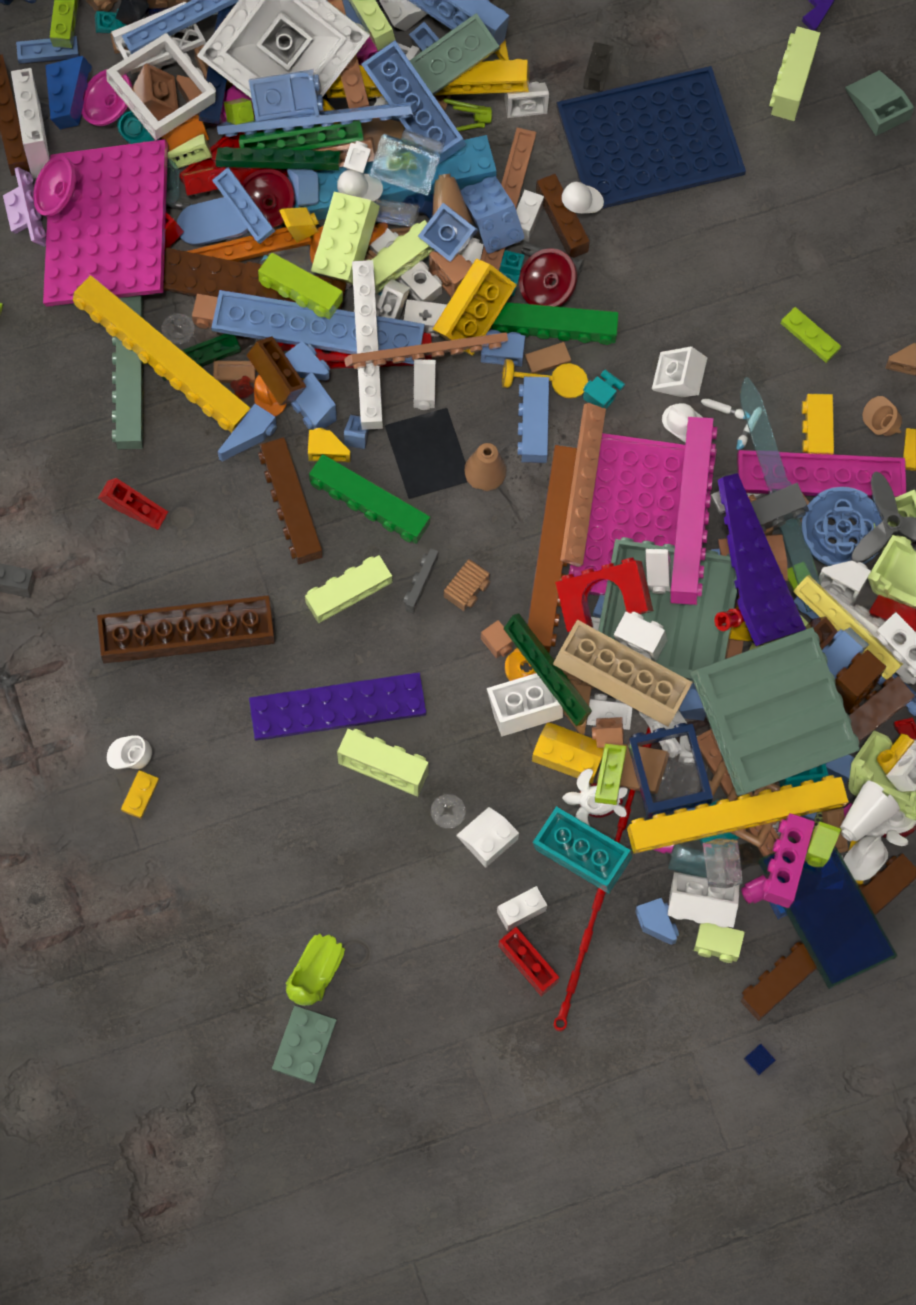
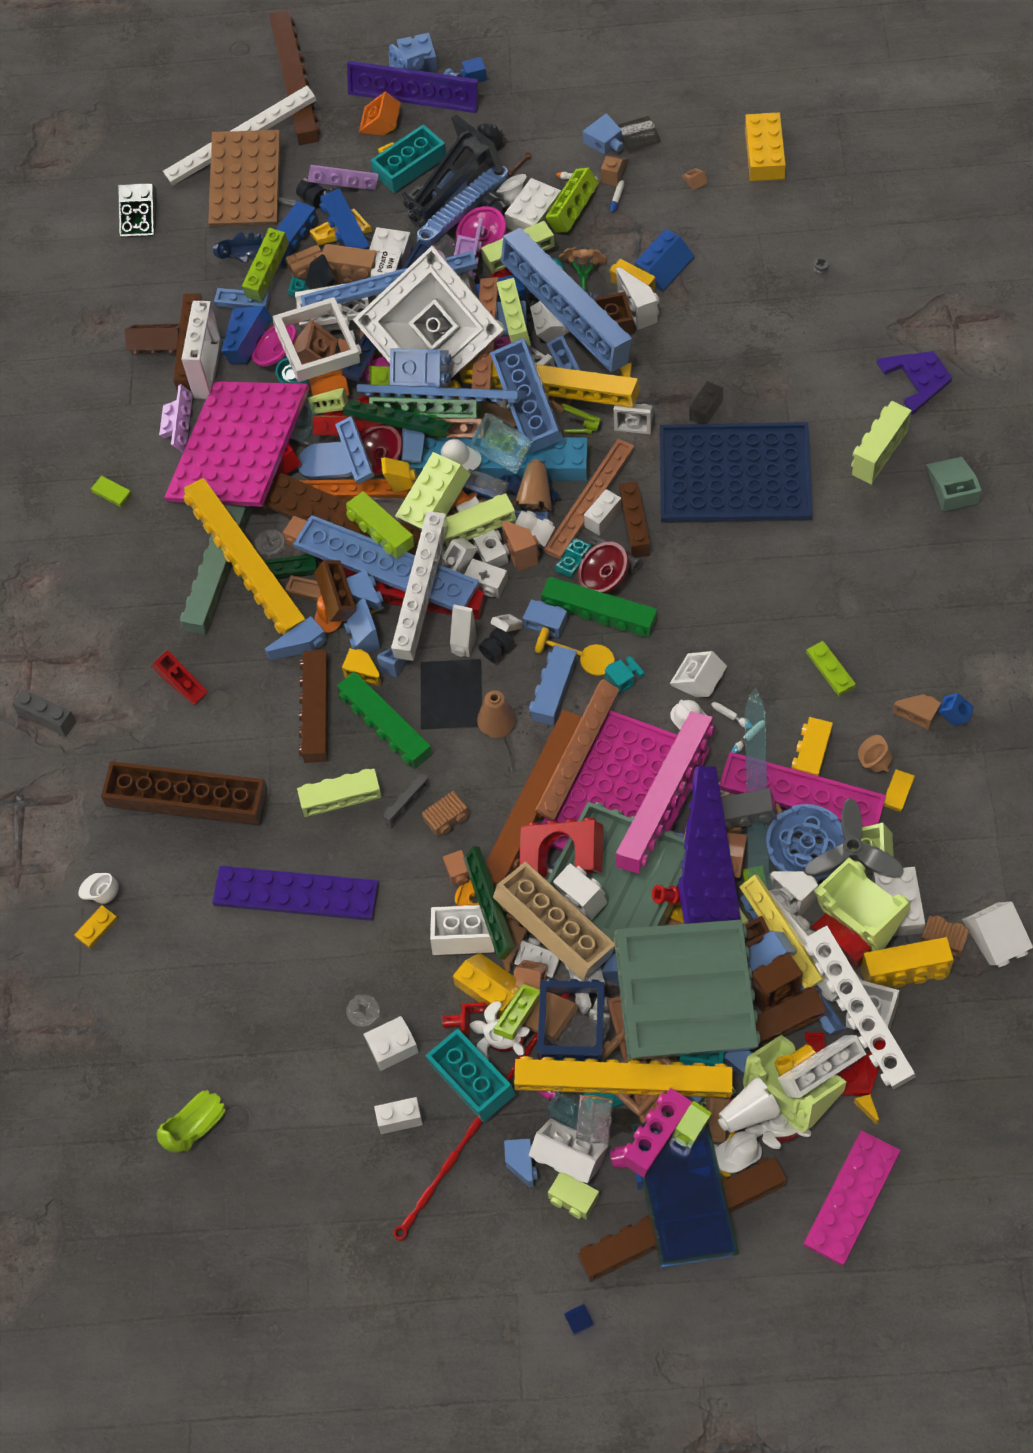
camera: 25 degrees right, 10 degrees down
(54, 186) = (204, 404): dark pink dish -> none
(246, 391) = (308, 597): clear red plate -> none
(304, 1044) = (160, 1189): sand green plate -> none
(357, 157) = (463, 429): white bracket -> none
(383, 762) = (315, 949): yellowish green brick -> none
(420, 351) = (477, 601): nougat plate -> none
(421, 141) = (524, 427): clear piece -> none
(447, 232) = (521, 506): medium blue slope -> none
(454, 54) = (573, 361): sand green plate -> none
(461, 387) = (493, 647): none -> black wheel
(466, 363) = (507, 622): none -> white tile
(475, 303) = (527, 575): yellow brick -> none
(493, 214) = (570, 504): medium blue bracket -> none
(528, 961) = (387, 1166): red brick -> none
(547, 358) = (583, 636): medium nougat tile -> none
(552, 795) = (463, 1020): none -> red bracket
(582, 198) = (654, 507): white cap -> none
(658, 570) = (611, 832): white slope -> none

